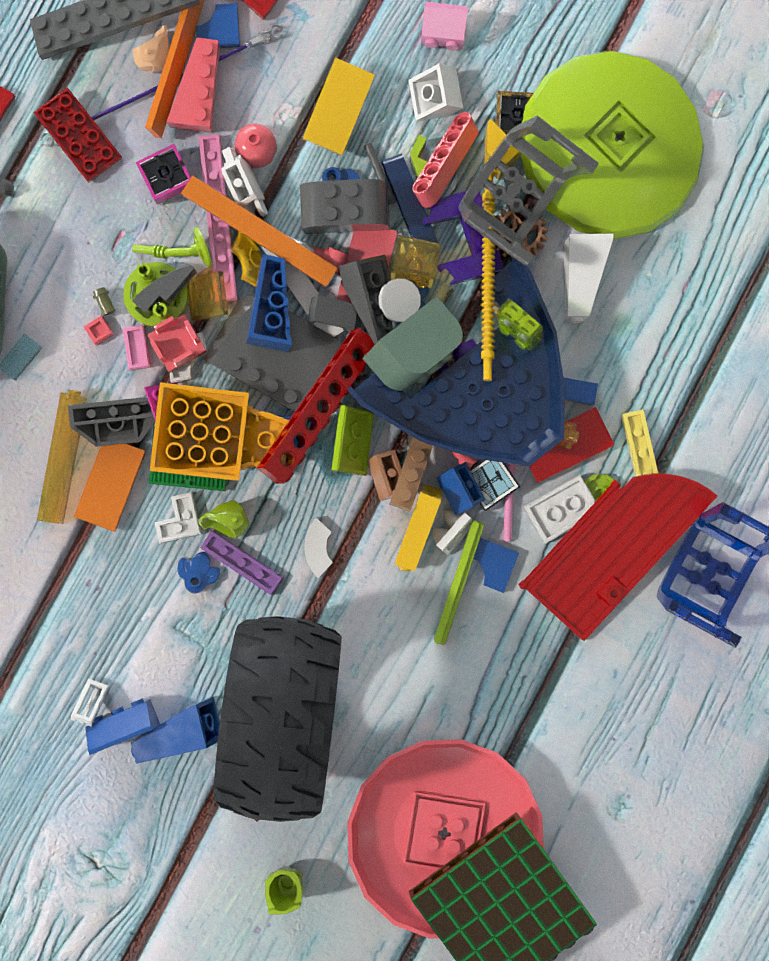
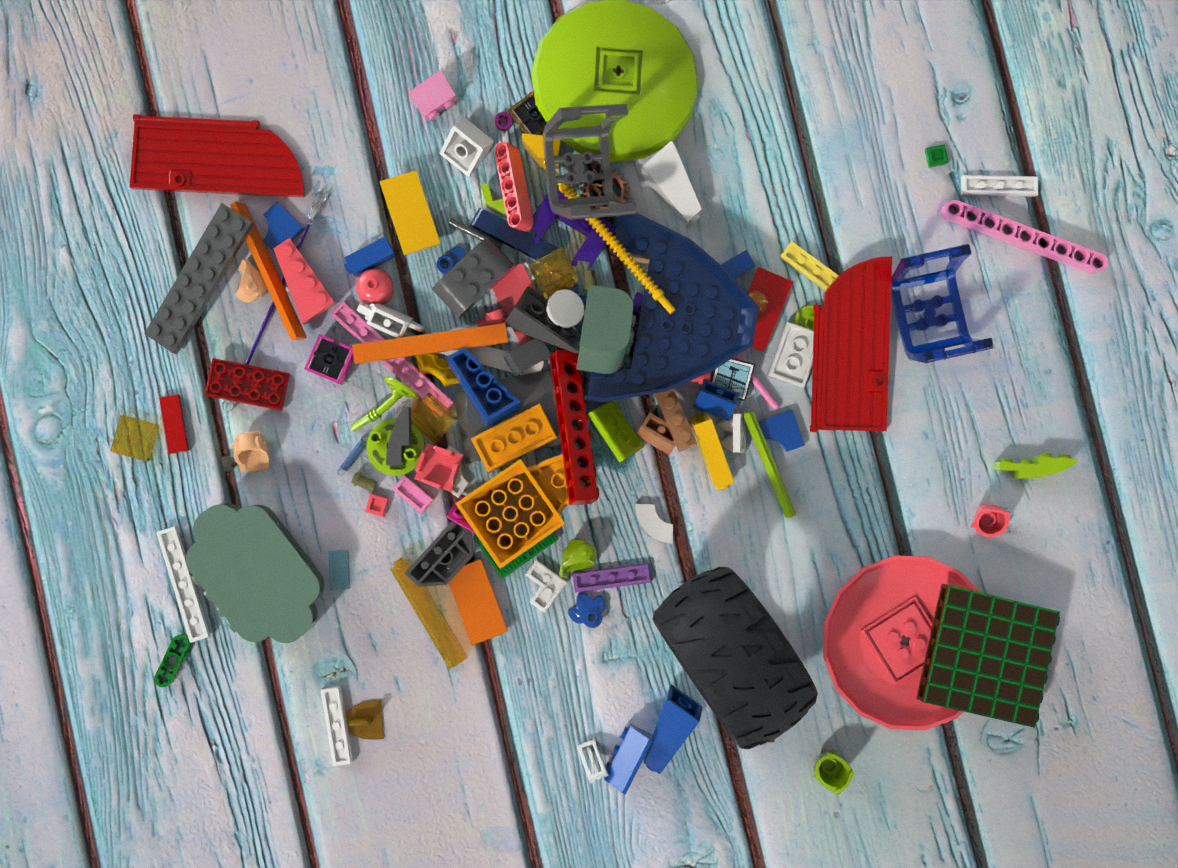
camera: 35 degrees left, 0 degrees up
(31, 194) = (251, 452): none -> light nougat helmet
(115, 271) = (353, 455): none -> medium blue piece
(260, 372) = (514, 438): none -> light orange tile
(273, 116) = (369, 257): none -> blue brick
(486, 91) = (509, 121): none -> magenta bush
(519, 325) = (663, 256): clear neon green piece -> none
(606, 795) = (991, 520): none -> coral helmet
(691, 787) = (1037, 467): none -> lime slope

